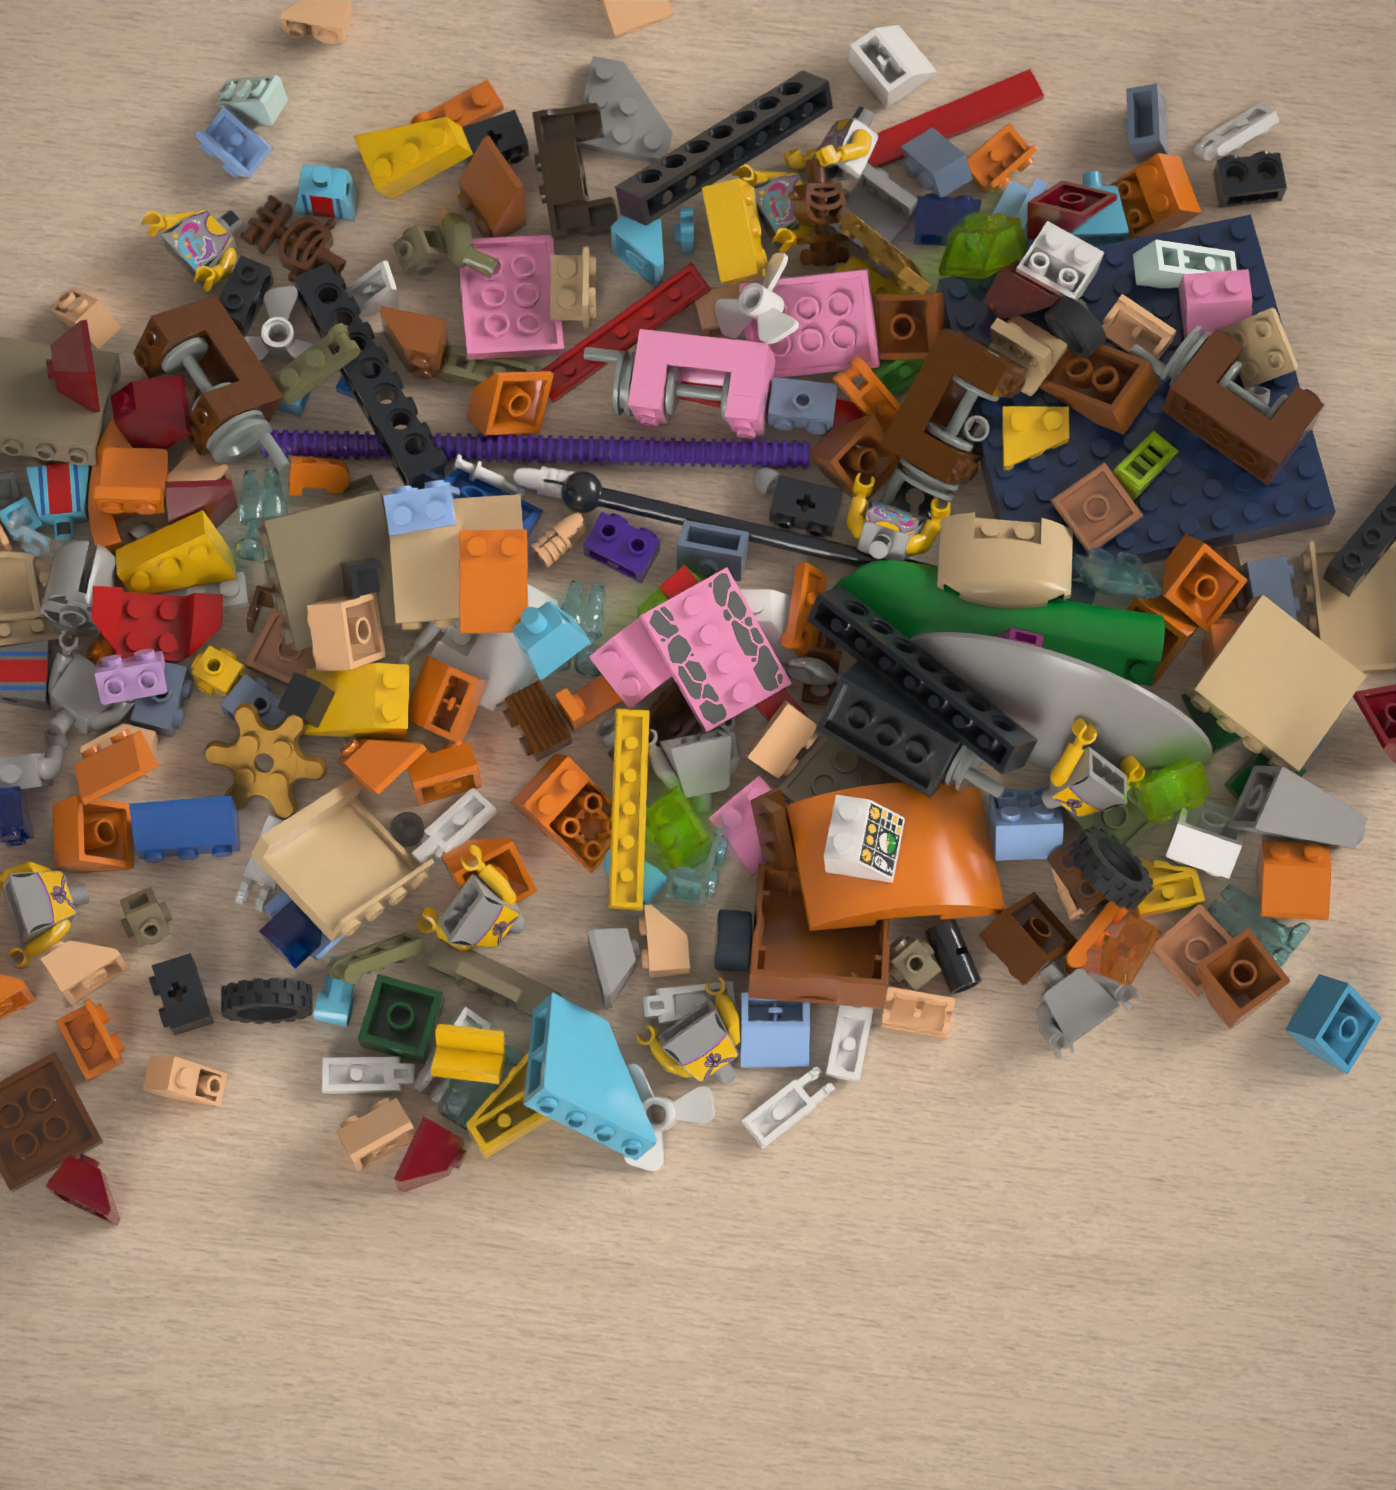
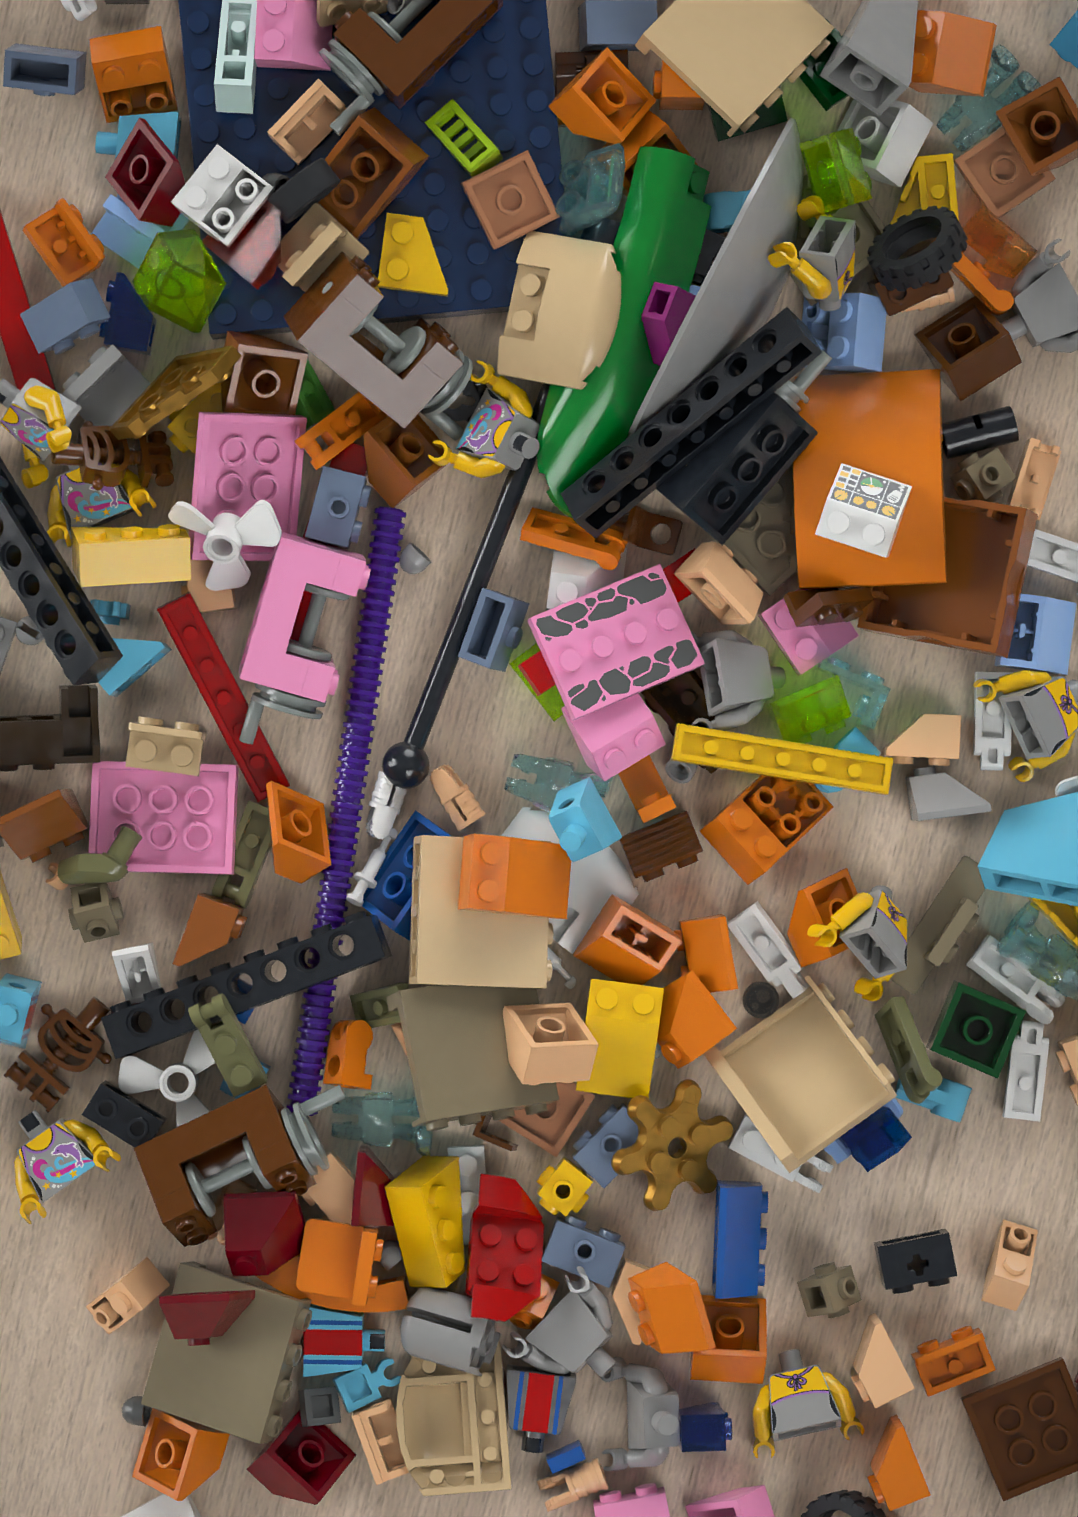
camera: 80 degrees left, 15 degrees up
(31, 540) = (388, 1378): clear bracket -> none
(130, 676) = (567, 1283): lavender bracket -> none
(266, 1000) = (944, 1170): black tyre -> none
(306, 699) = (618, 1095): black panel -> none
(360, 577) = (491, 1021): black panel -> none
(420, 510) = (425, 946): light blue bracket -> none
(469, 1054) = (1034, 962): yellow panel -> none
(622, 546) = (472, 728): dark purple brick -> none
(733, 940) = (935, 665): black wheel -> none
(793, 494) = (435, 534): black brick -> none
(811, 671) = (647, 536): light grey piece -> none
(979, 432) = (400, 317): light grey hinge -> none

